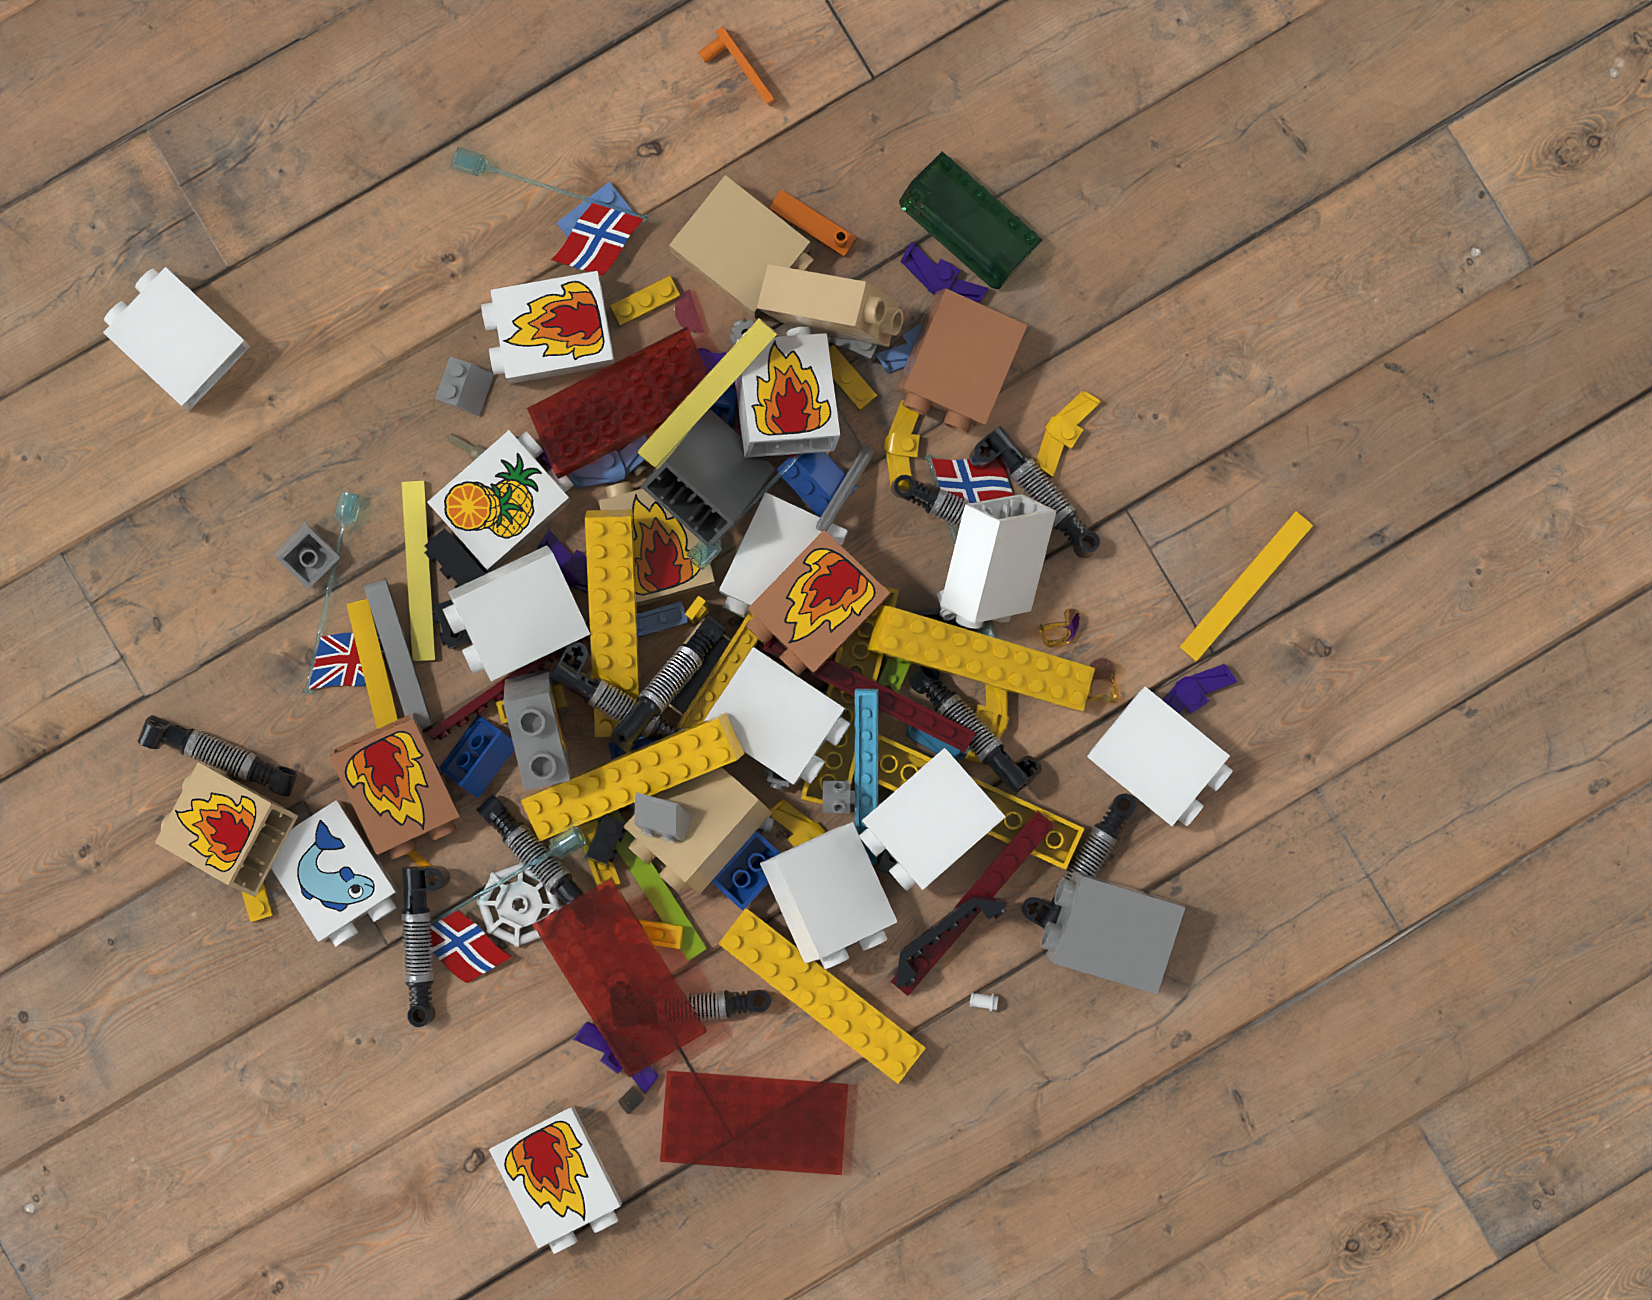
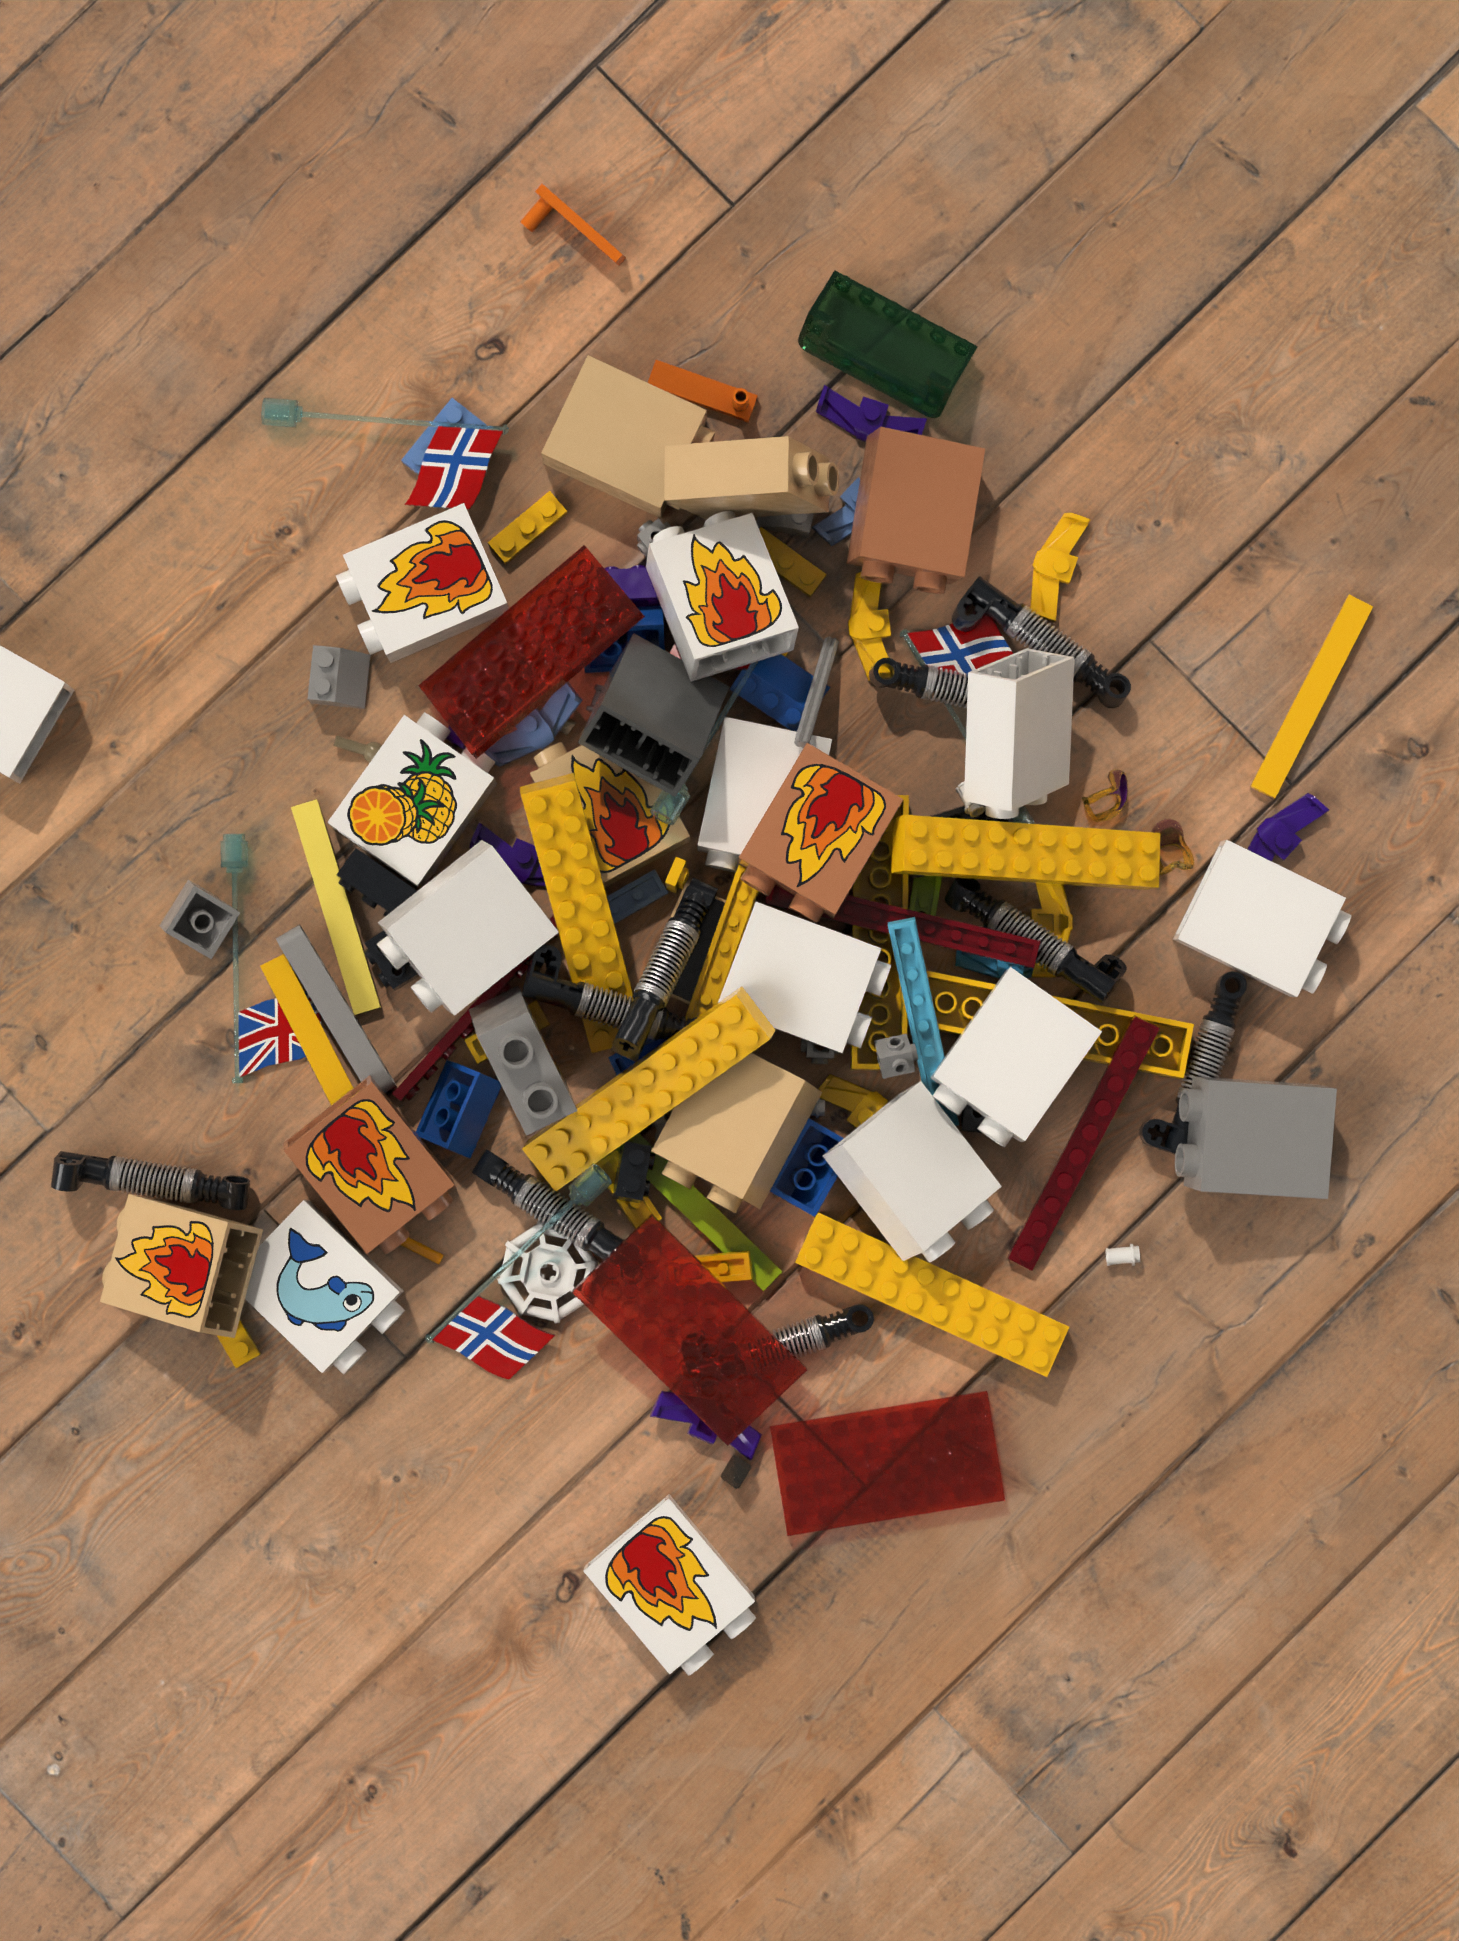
camera: 20 degrees left, 0 degrees up
(417, 940) = (438, 1346): black piece -> none
(661, 818) = (694, 1130): light grey slope -> none
(687, 314) = (580, 531): clear pink tile -> none
(707, 392) = (629, 614): light yellow tile -> none
(990, 907) = (1108, 1142): black slope -> none

